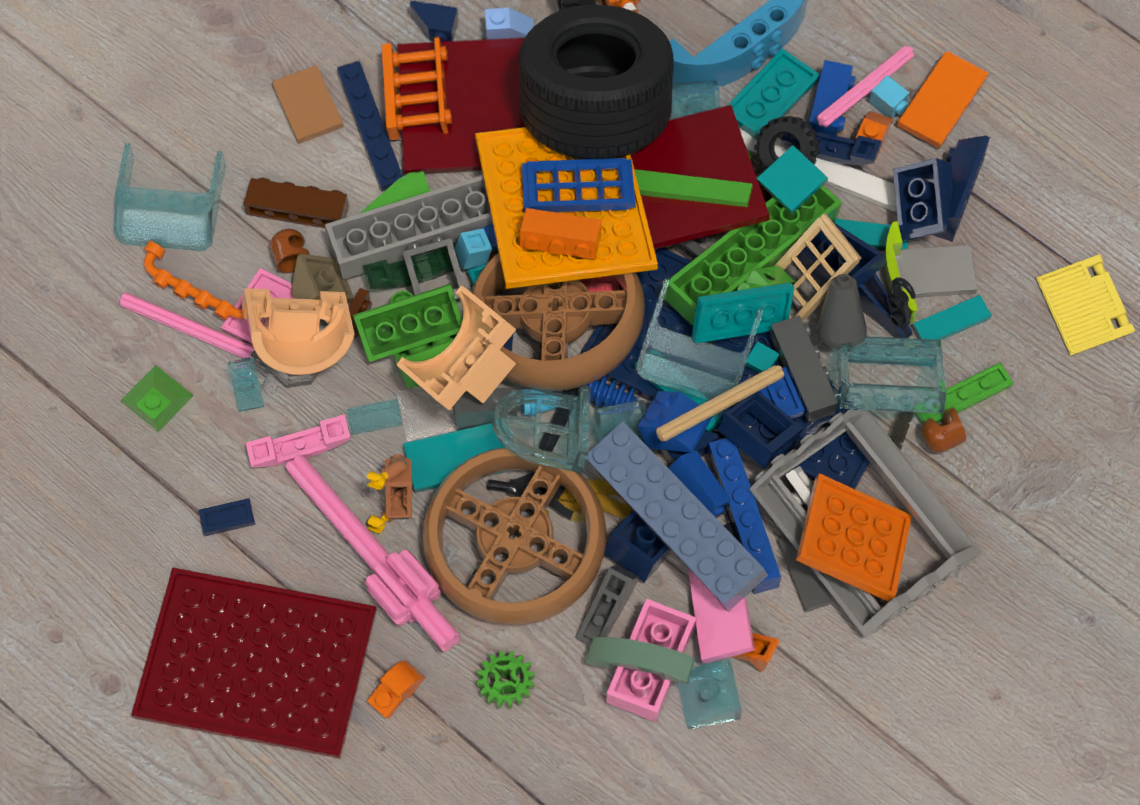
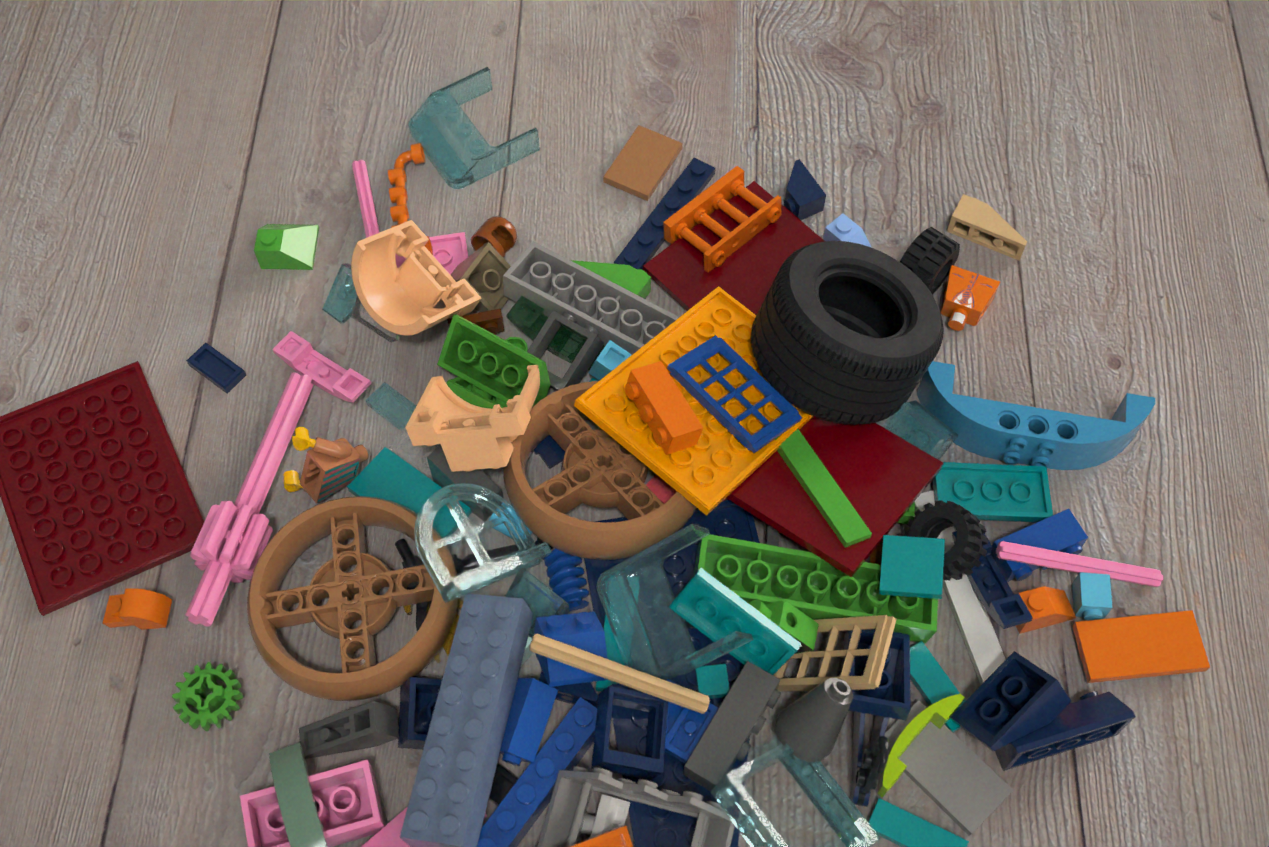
camera: 50 degrees right, 5 degrees down
(294, 203) = (542, 213): reddish brown brick -> none

